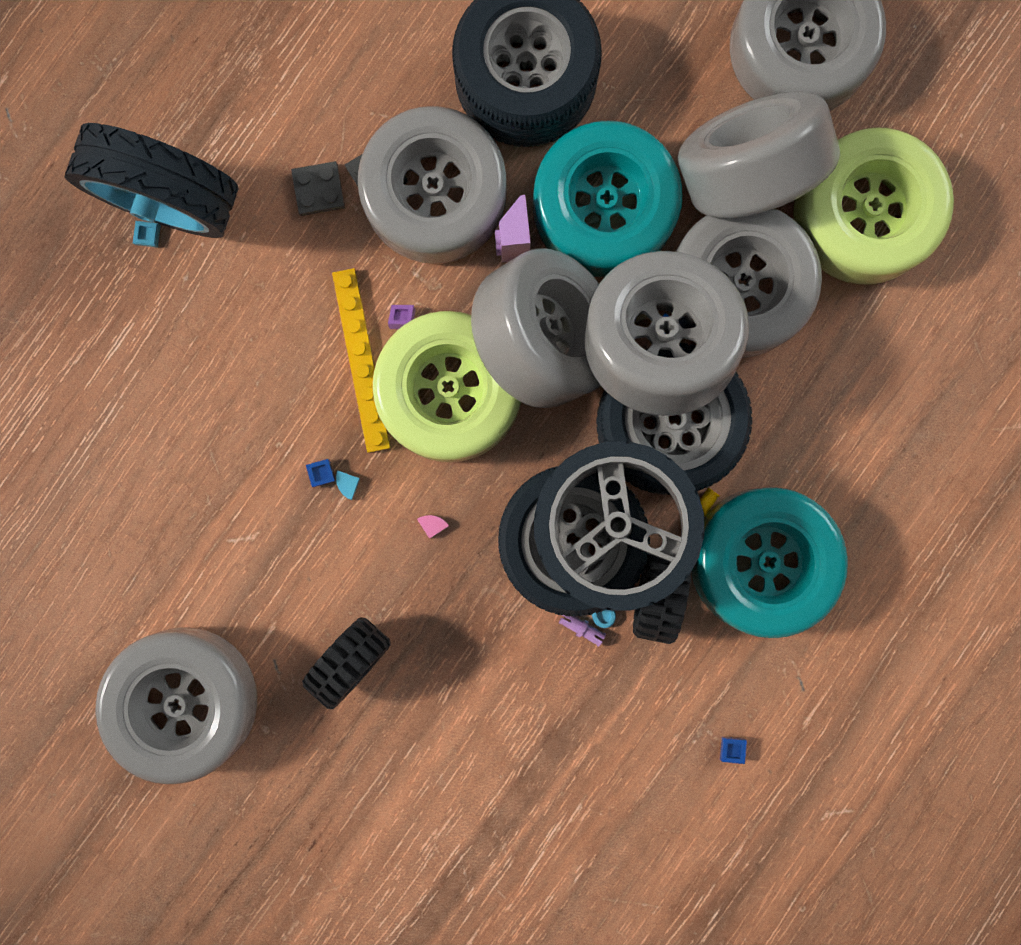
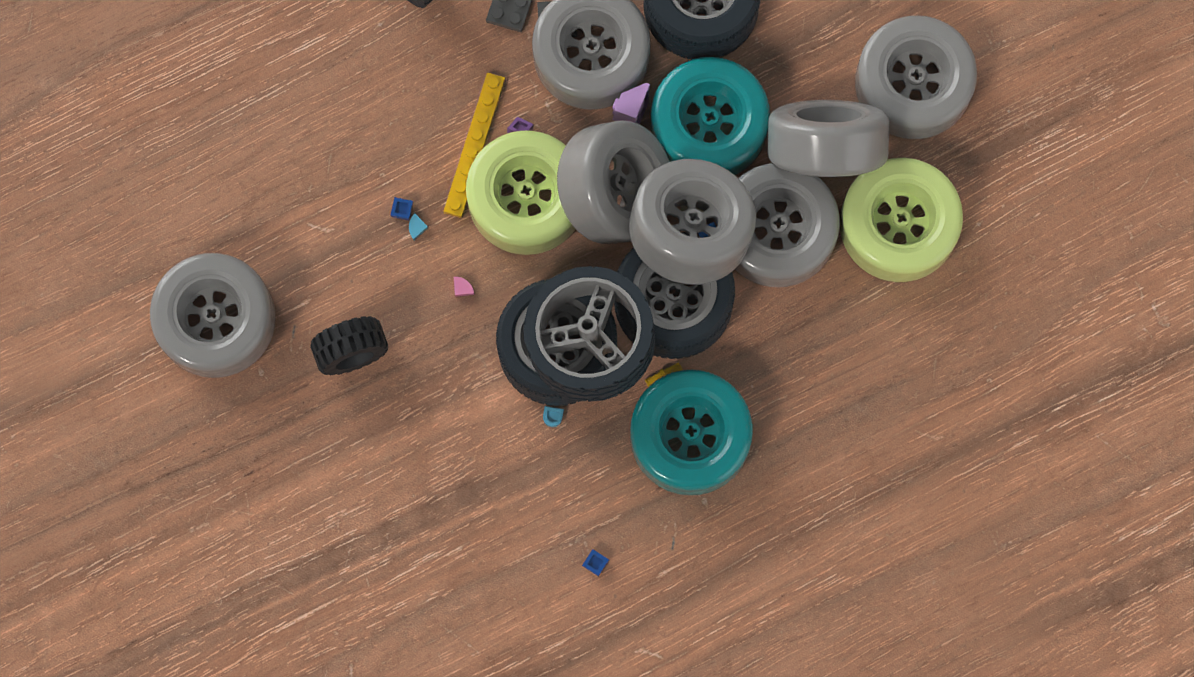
camera: 30 degrees right, 10 degrees down
(583, 629) = (531, 417): lavender pin -> none
(664, 618) = (597, 420): black tyre -> none

